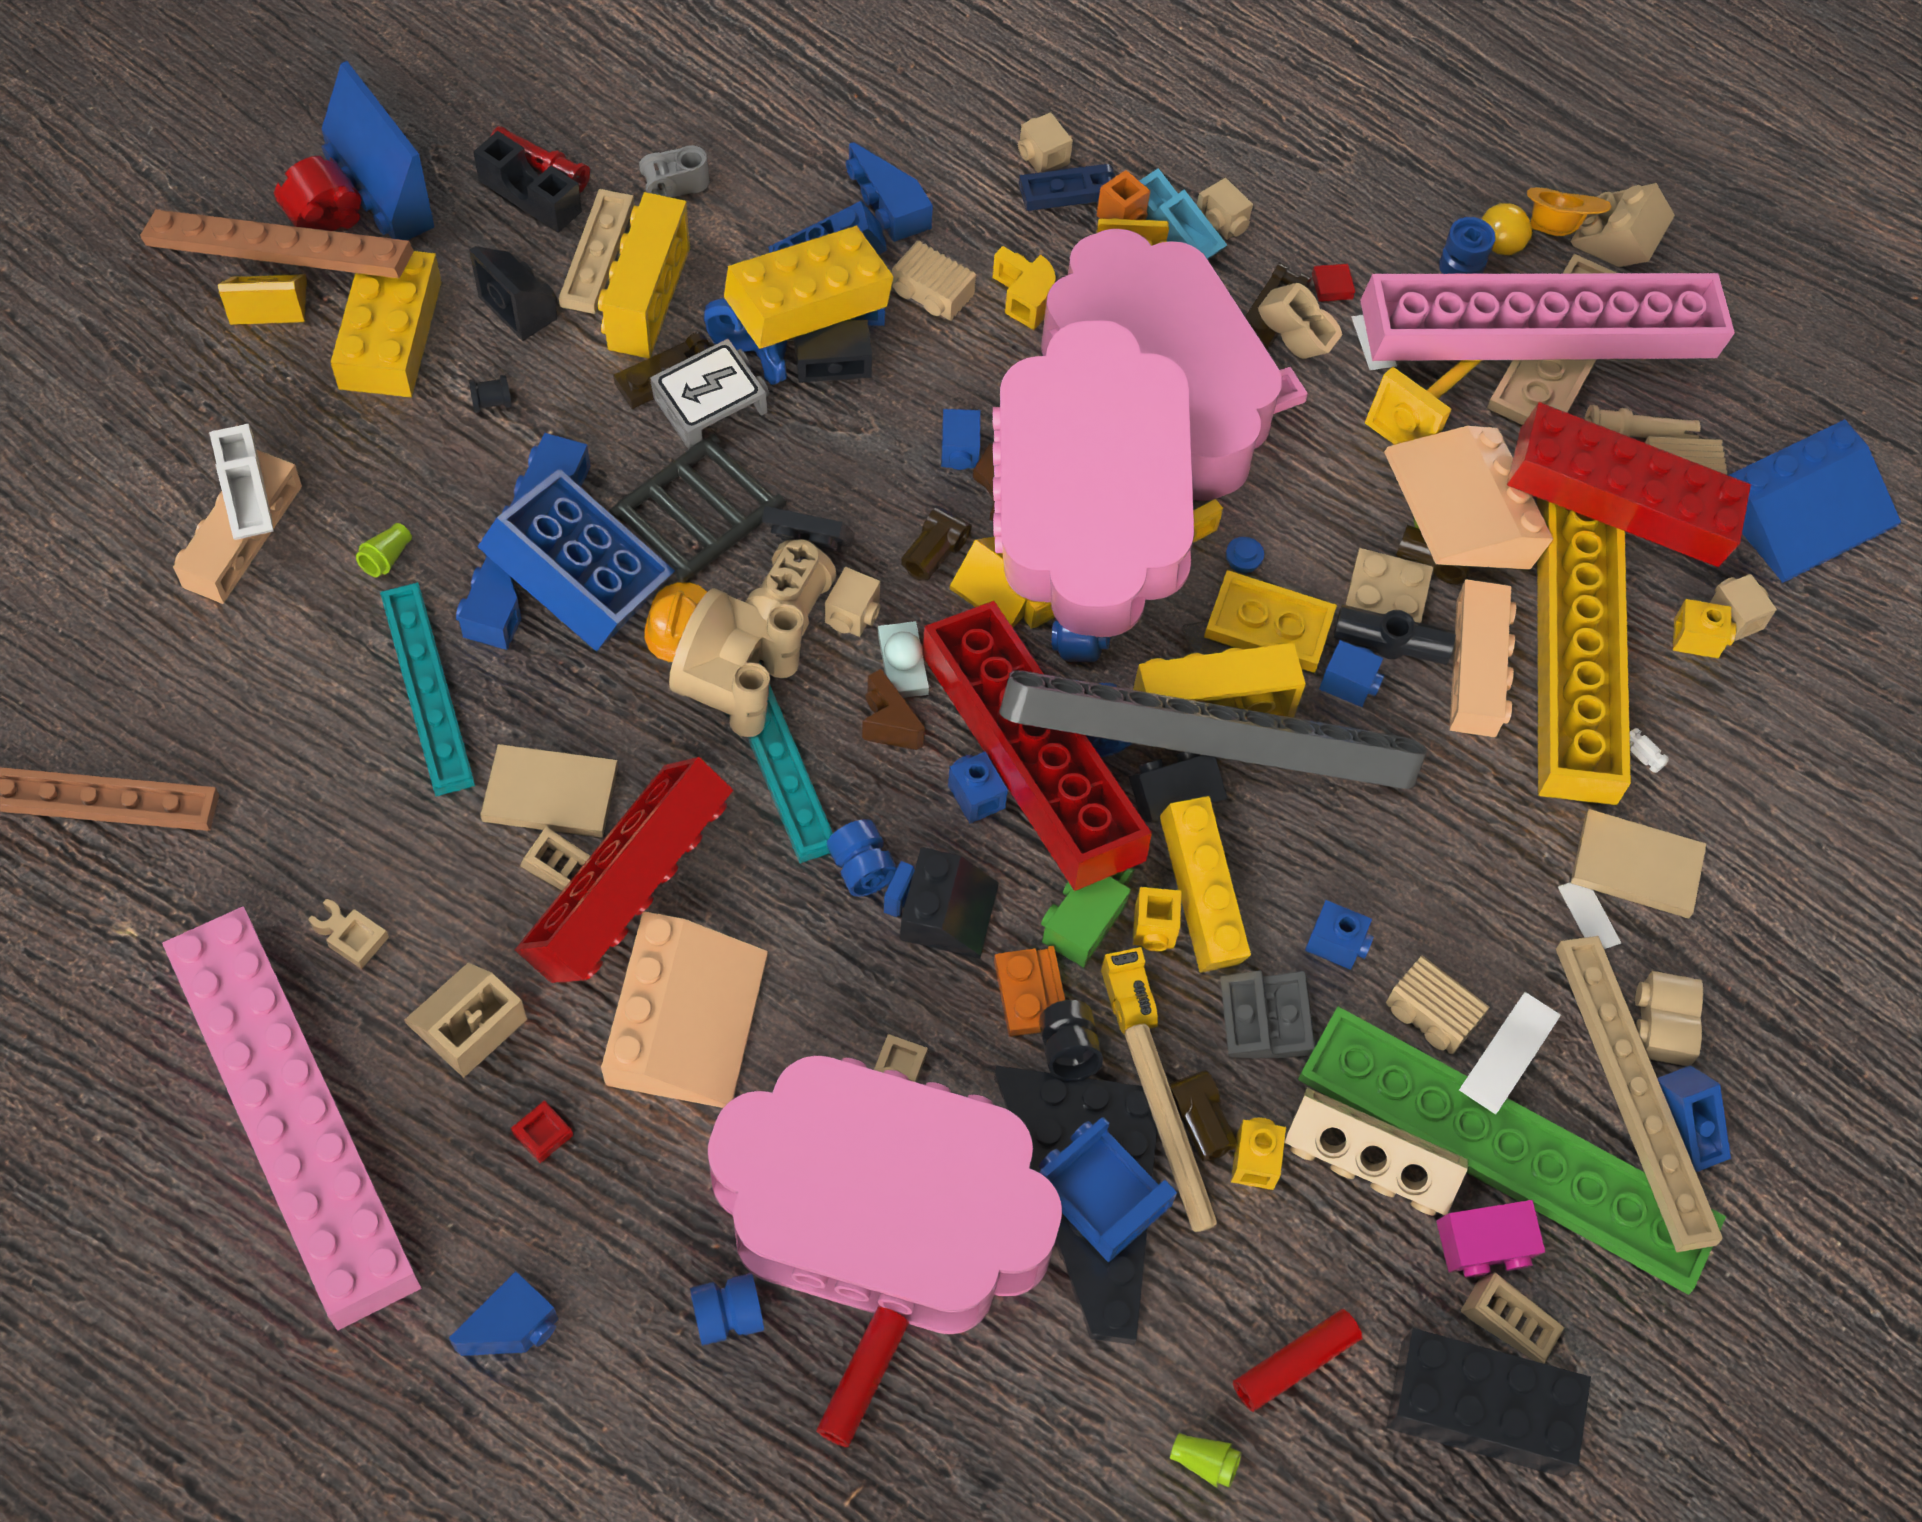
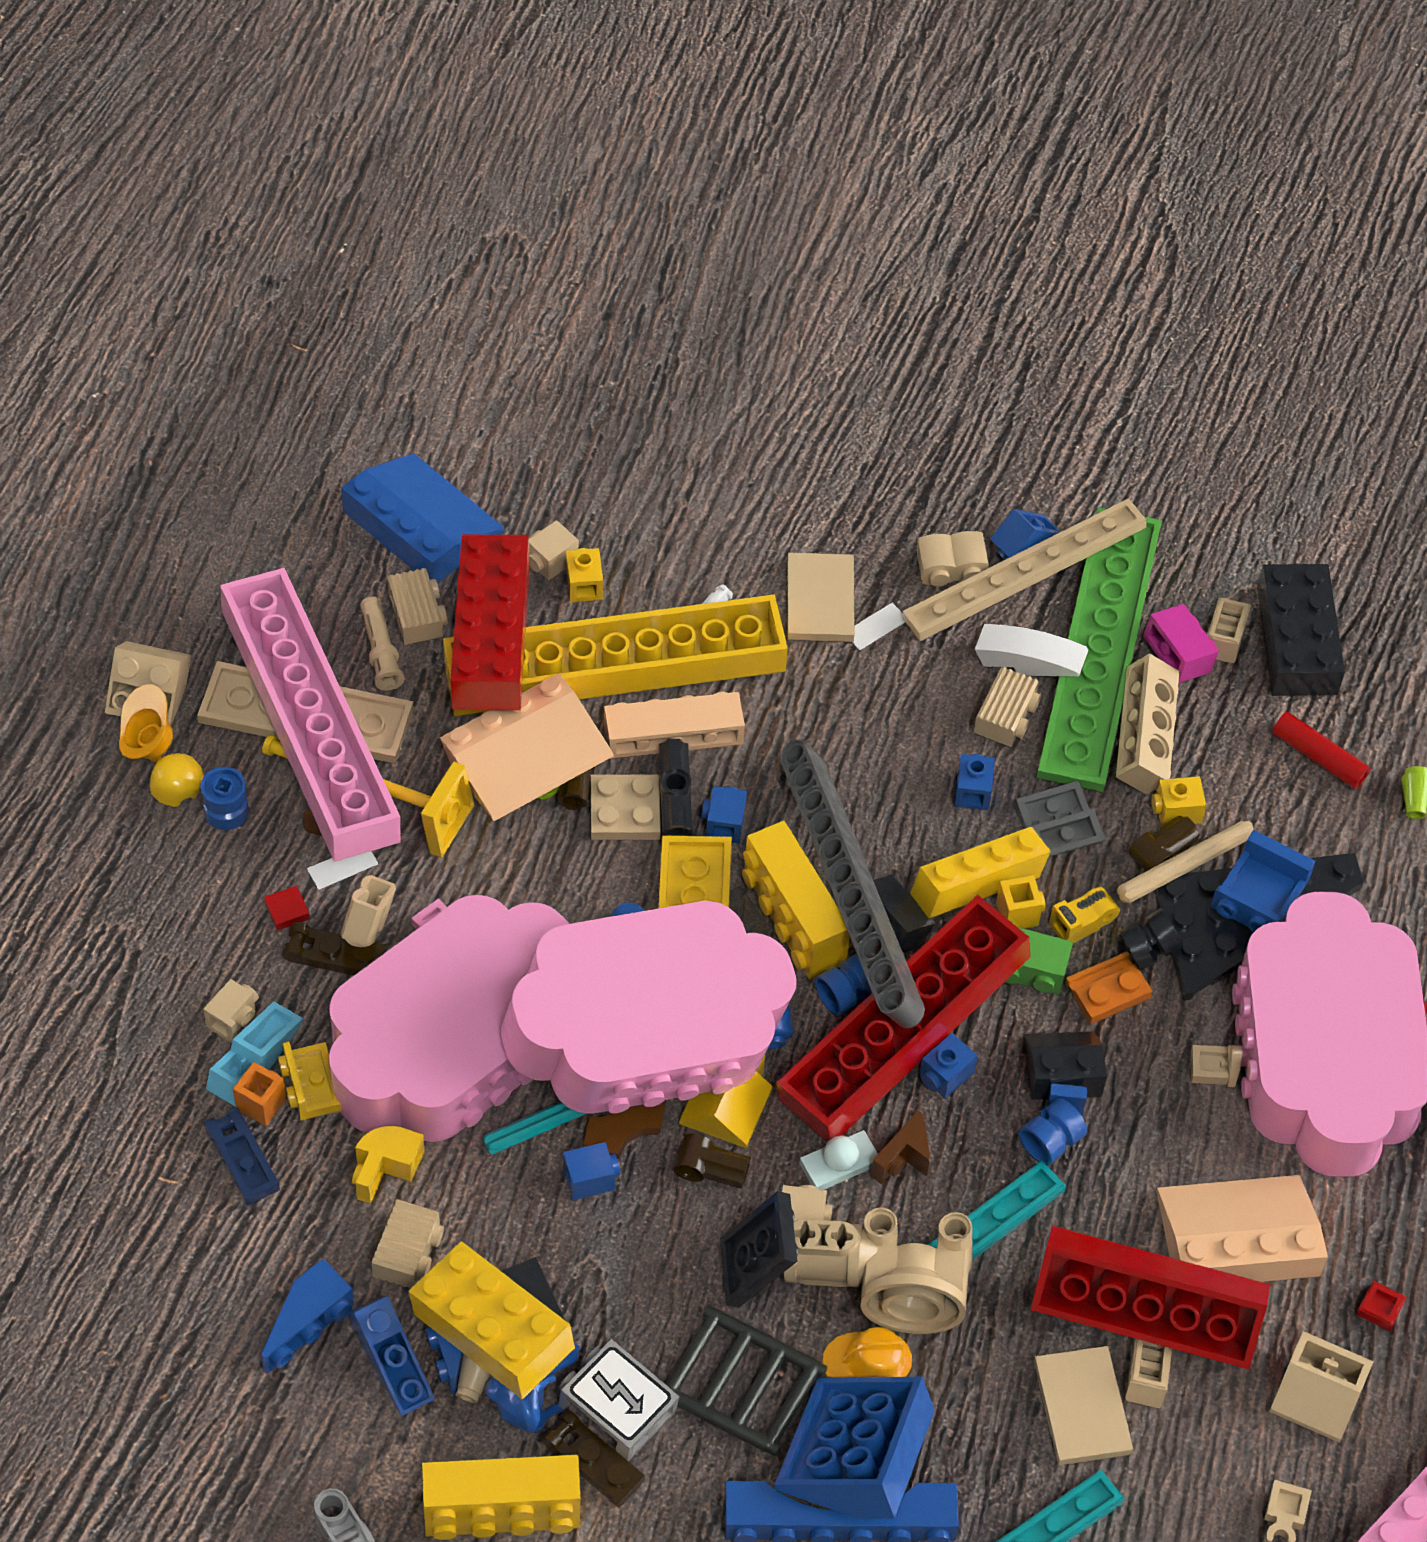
camera: 105 degrees left, 5 degrees down
(1045, 143) = (192, 1188): tan brick -> none

